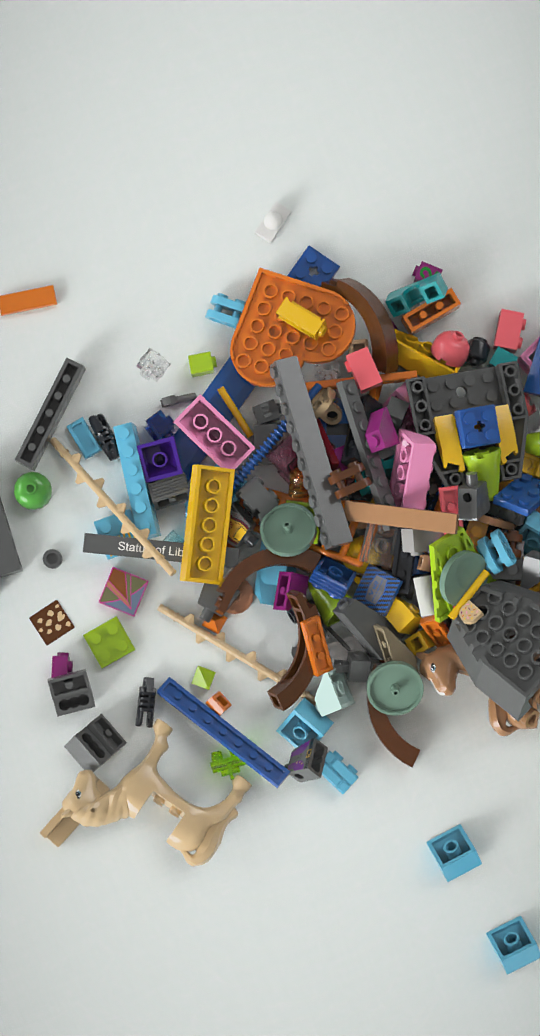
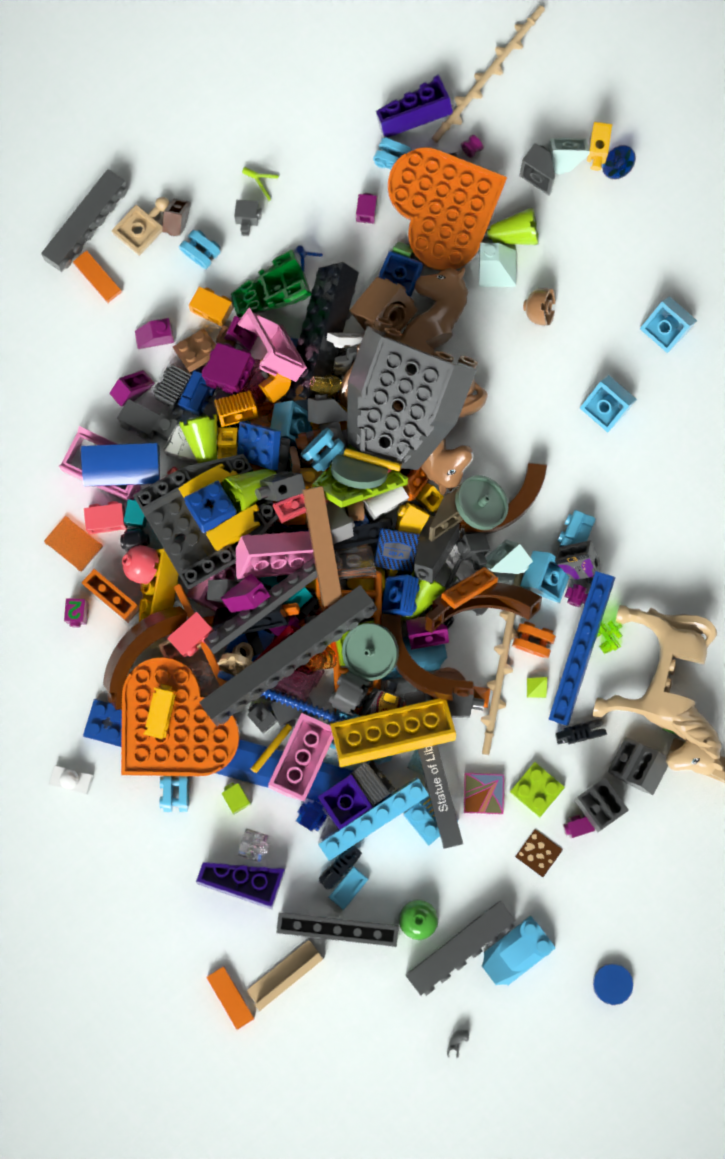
camera: 105 degrees left, 5 degrees down
(29, 355) = (284, 975): none -> tan panel
(52, 558) = (477, 875): dark grey tile -> none
(119, 509) = (409, 824): tan plant -> none
(121, 347) = (244, 882): none -> dark purple wedge
(172, 400) = (278, 808): dark grey bar -> none
(218, 703) = (555, 664): orange brick -> none
(248, 703) = (544, 636): none -> orange brick
(276, 747) = (576, 595): none -> magenta gear
(338, 477) = (304, 618): reddish brown brick -> none
(427, 289) = (107, 625): teal arch -> none
(470, 613) = (390, 451): tan tile -> none
(495, 294) = (73, 543): none -> clear orange piece

